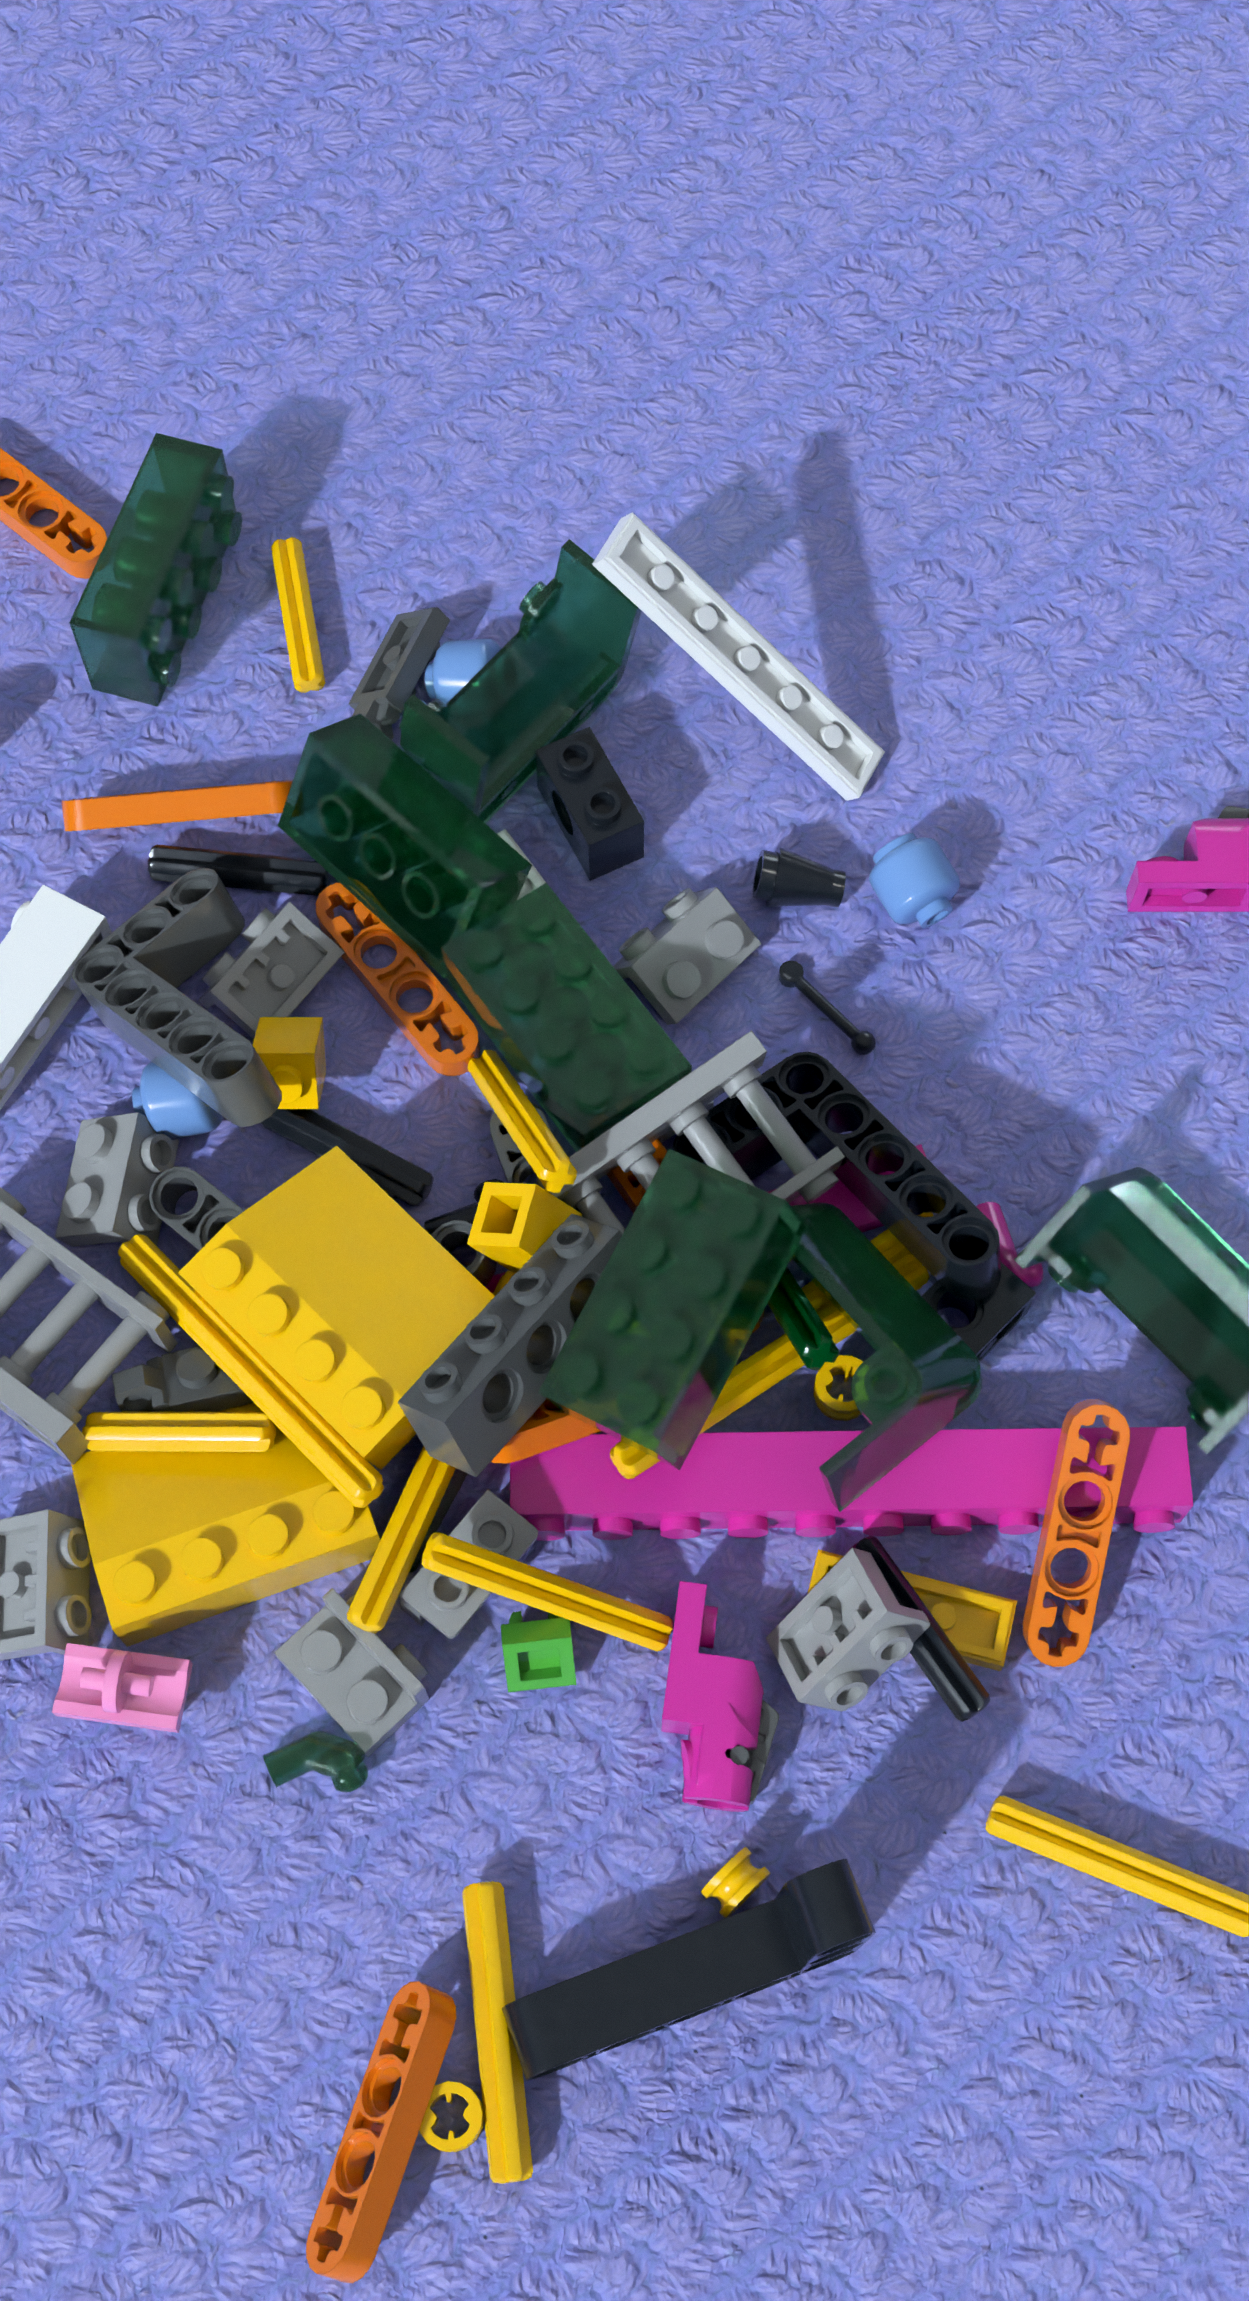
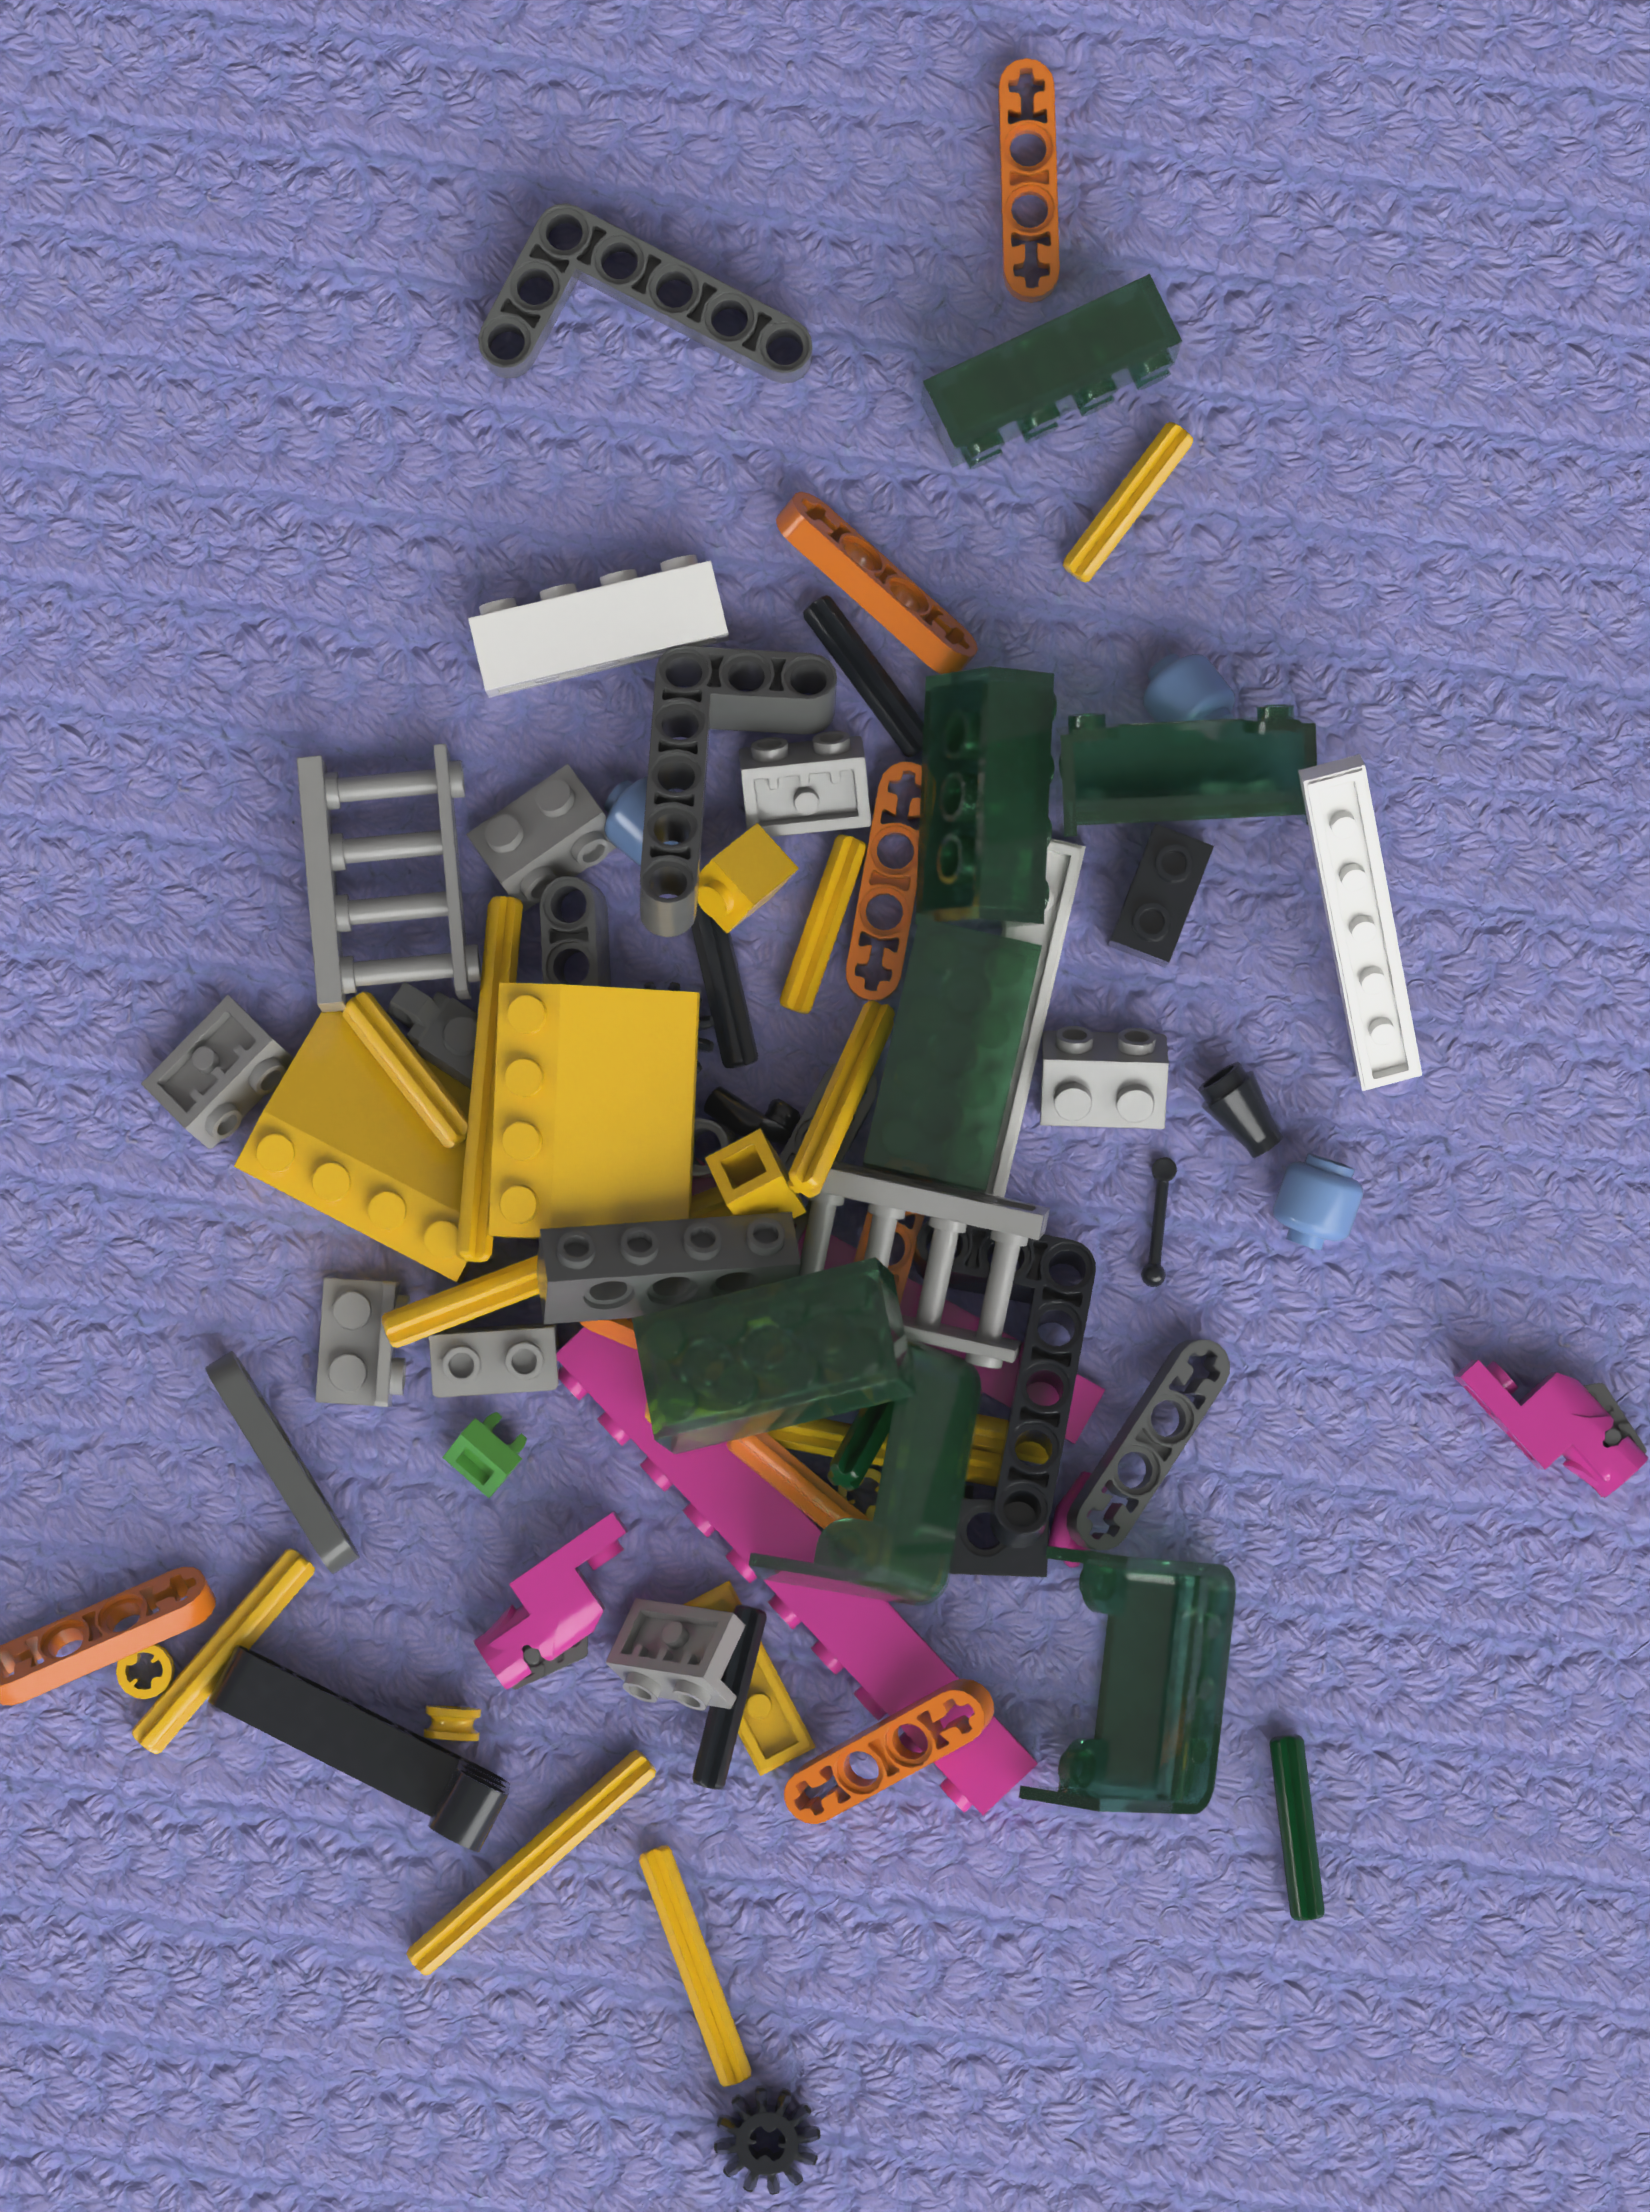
camera: 45 degrees right, 20 degrees up
(123, 1688) = (207, 1204): bright pink hips -> none
(319, 1753) = (289, 1374): clear green arm -> none
(381, 1048) = (823, 924): none -> yellow axle
(388, 1825) = (282, 1462): none -> dark grey beam
(398, 666) = (1135, 636): dark grey hinge -> none
(546, 1591) = (521, 1432): yellow axle -> none
(786, 1410) = (793, 1479): none -> orange axle
(914, 1932) = (531, 1862): none -> yellow axle
(985, 1142) = (1156, 1450): none -> dark grey beam

